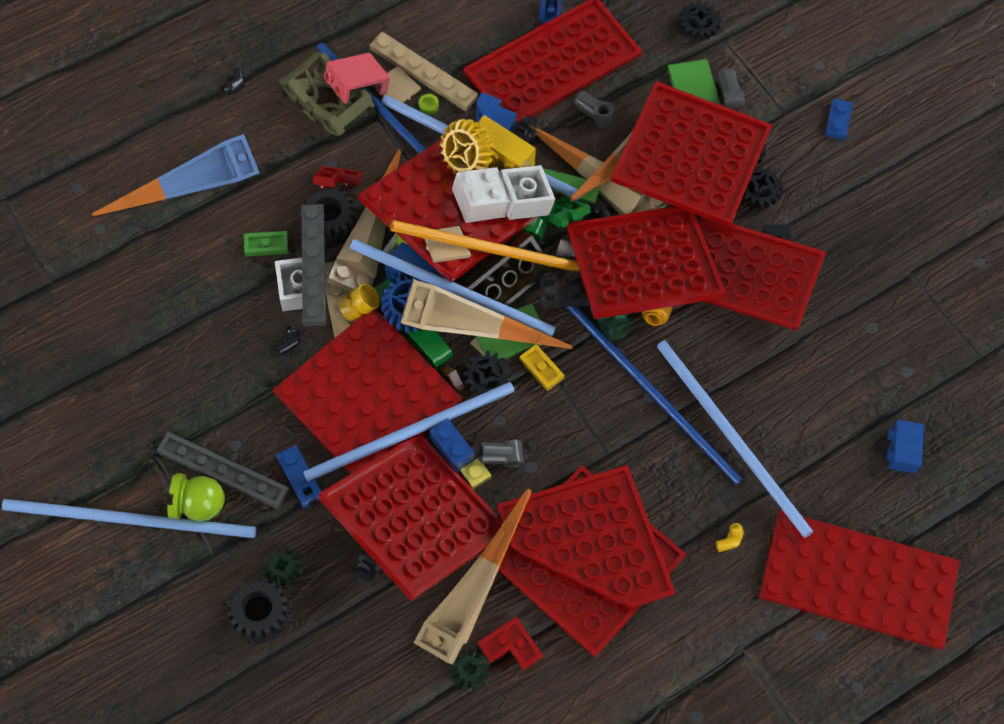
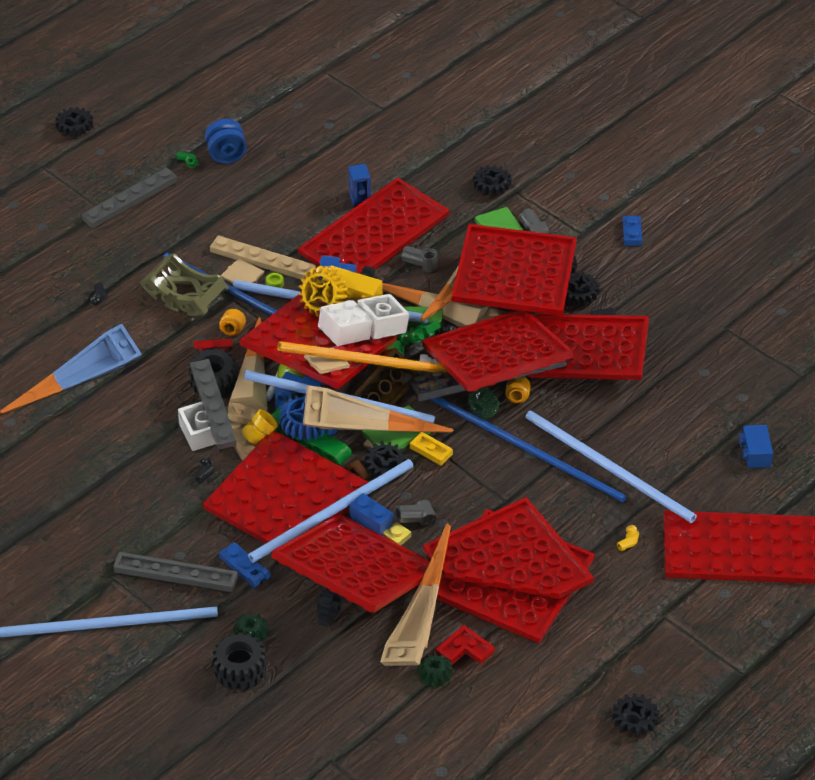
camera: 10 degrees left, 20 degrees down
(197, 498) = (161, 591): lime tile -> none
(266, 243) = (162, 404): bright green plate -> none
(356, 73) = (197, 266): coral panel -> none
(367, 152) = (232, 322): none -> light orange head

